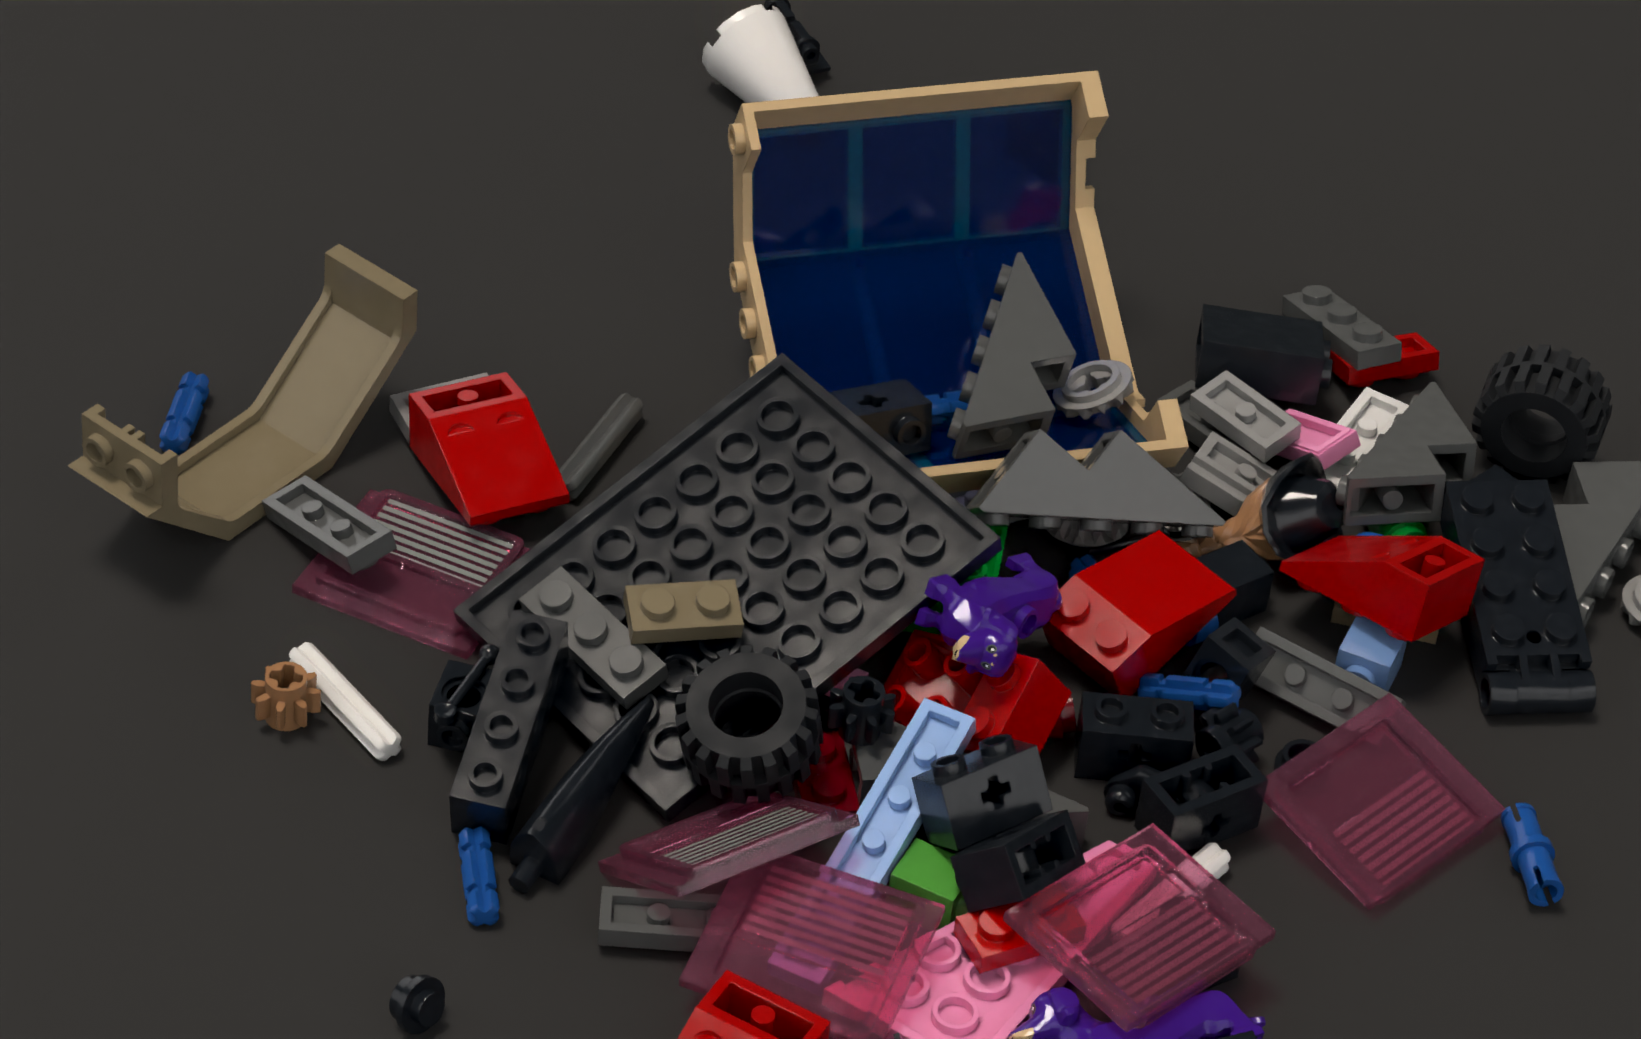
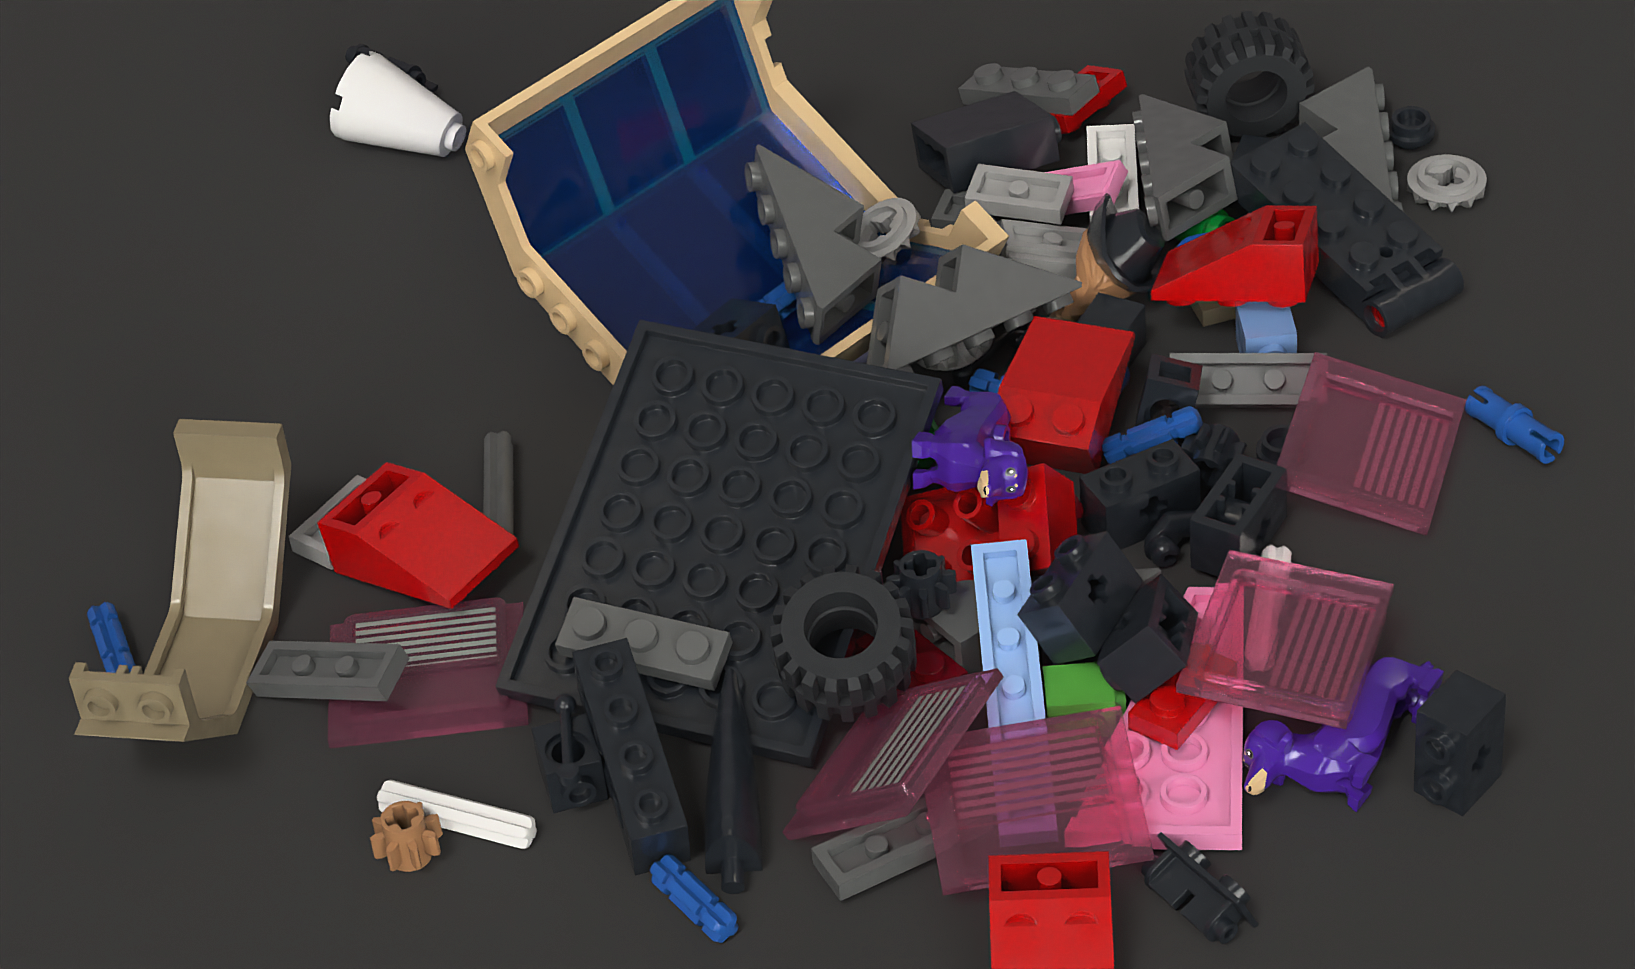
camera: 20 degrees left, 0 degrees up
(683, 611) = (712, 579): dark tan plate -> none

